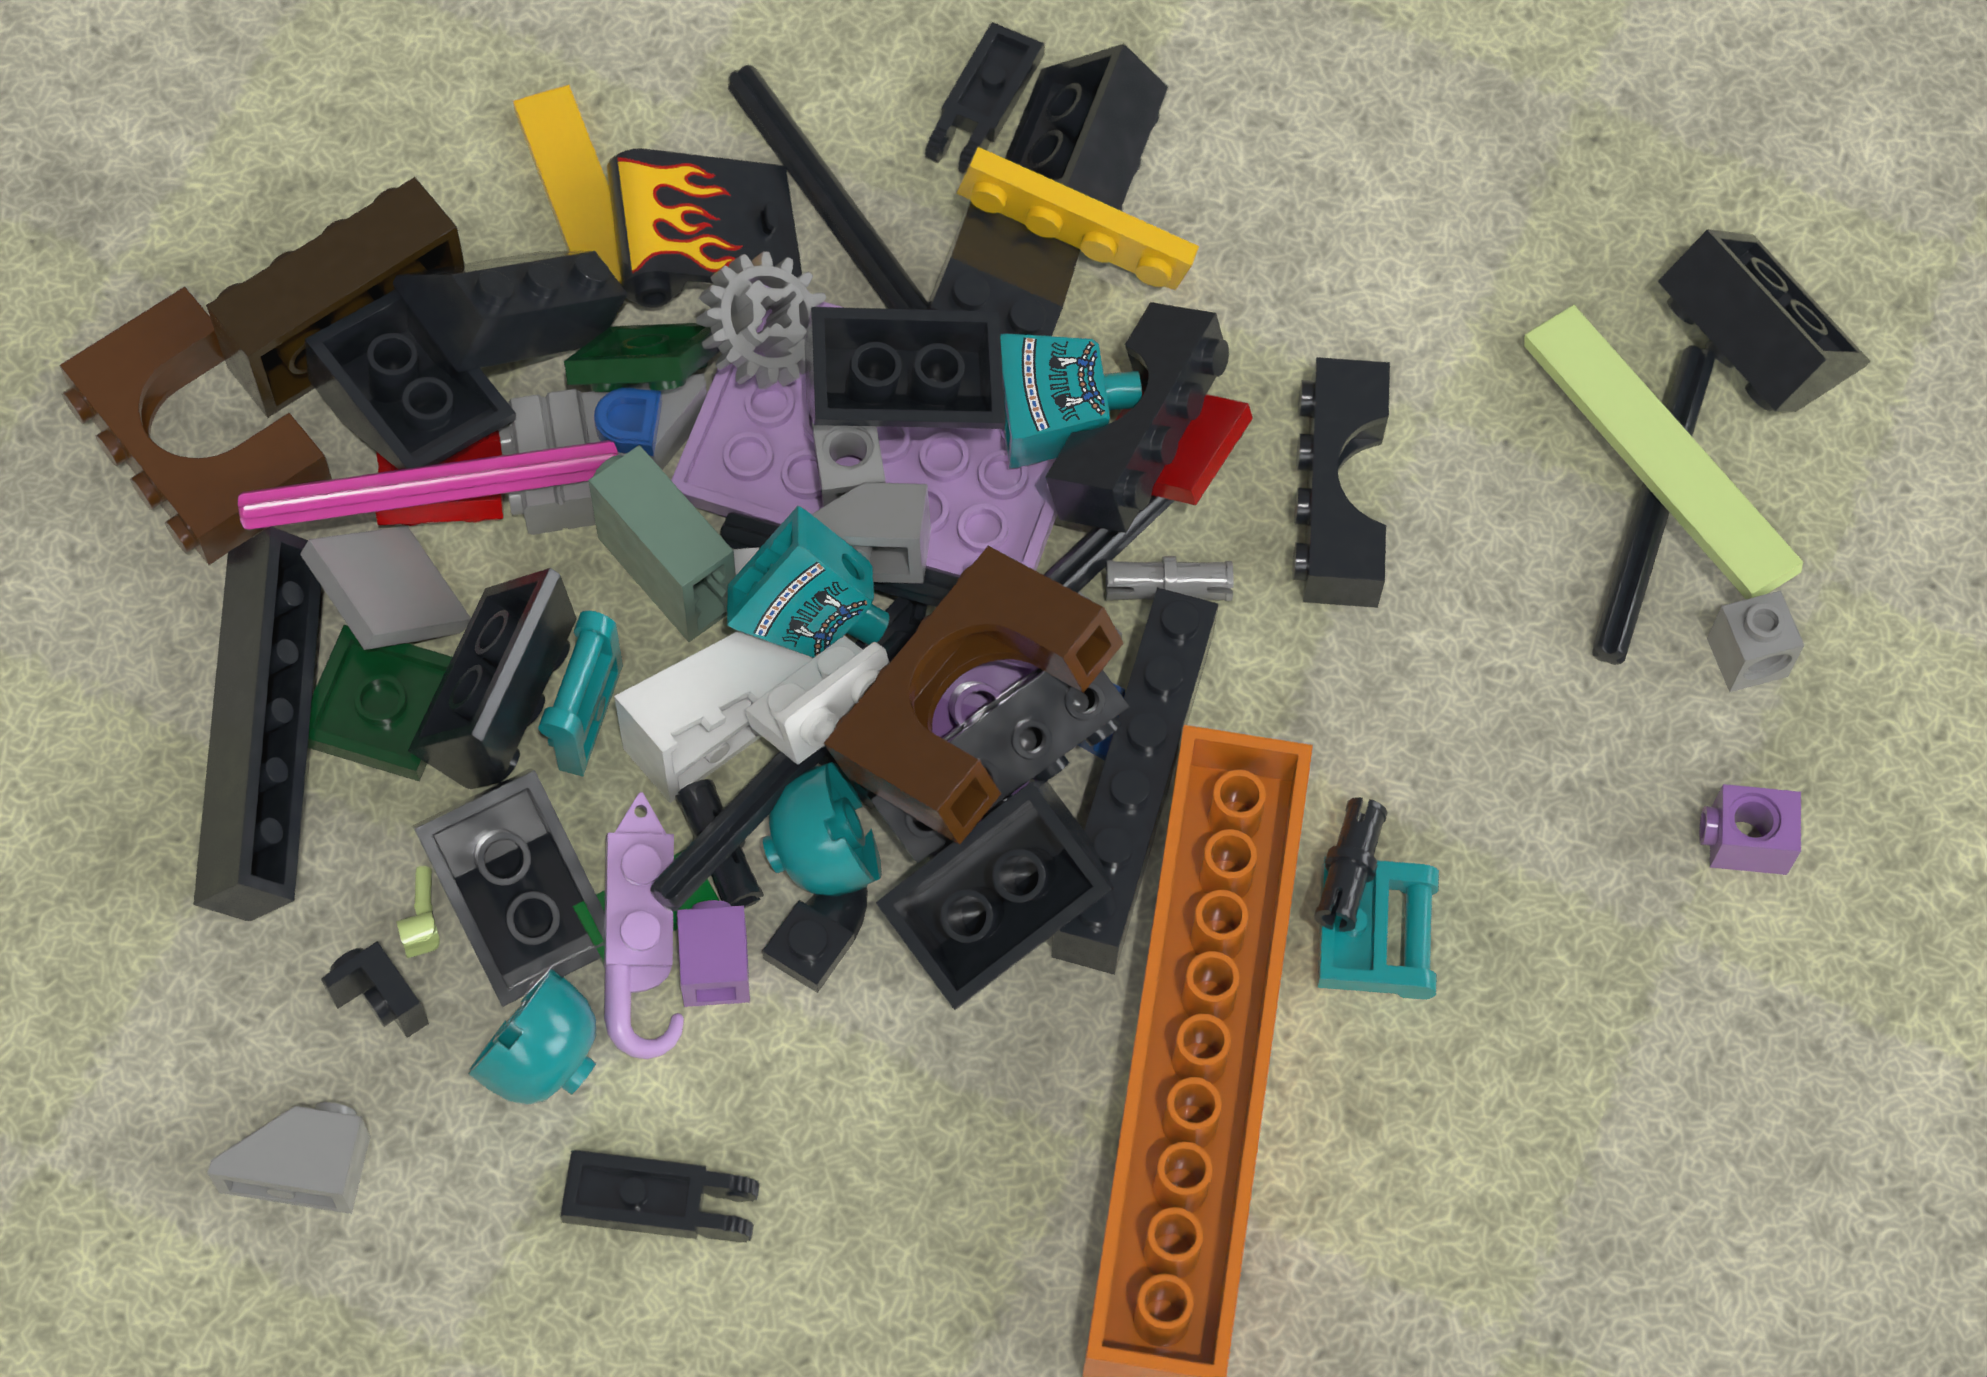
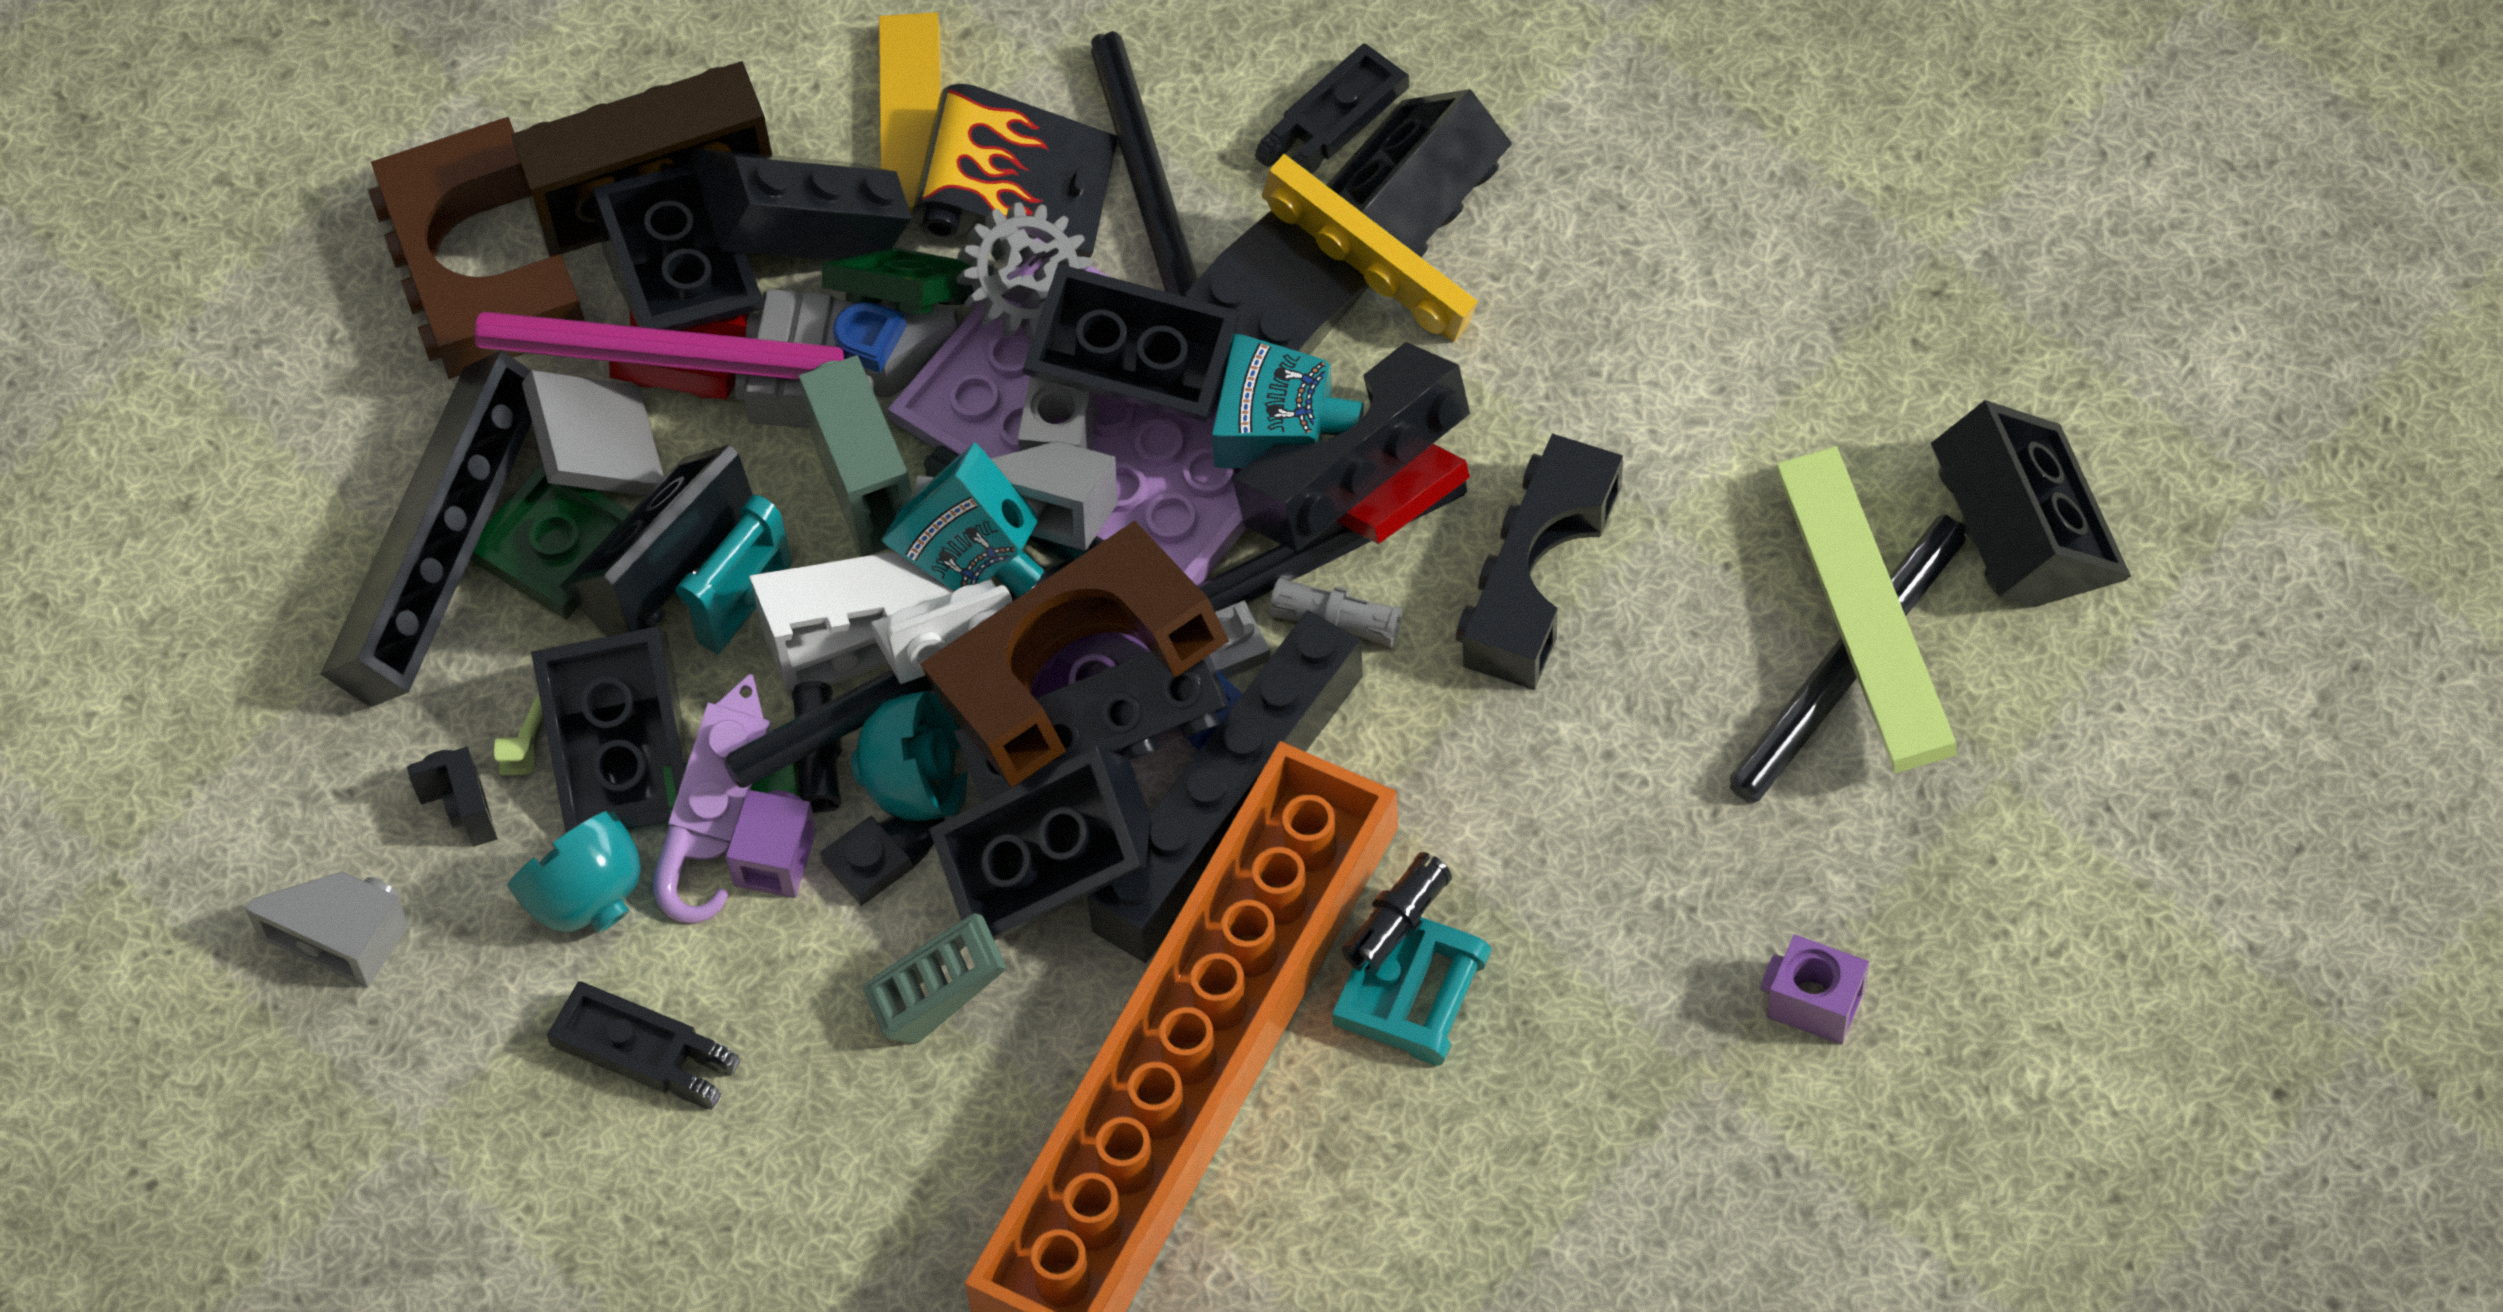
camera: 25 degrees right, 5 degrees down
(901, 1081) = (896, 991): none -> sand green slope
(1755, 641) = (1889, 811): light grey brick -> none

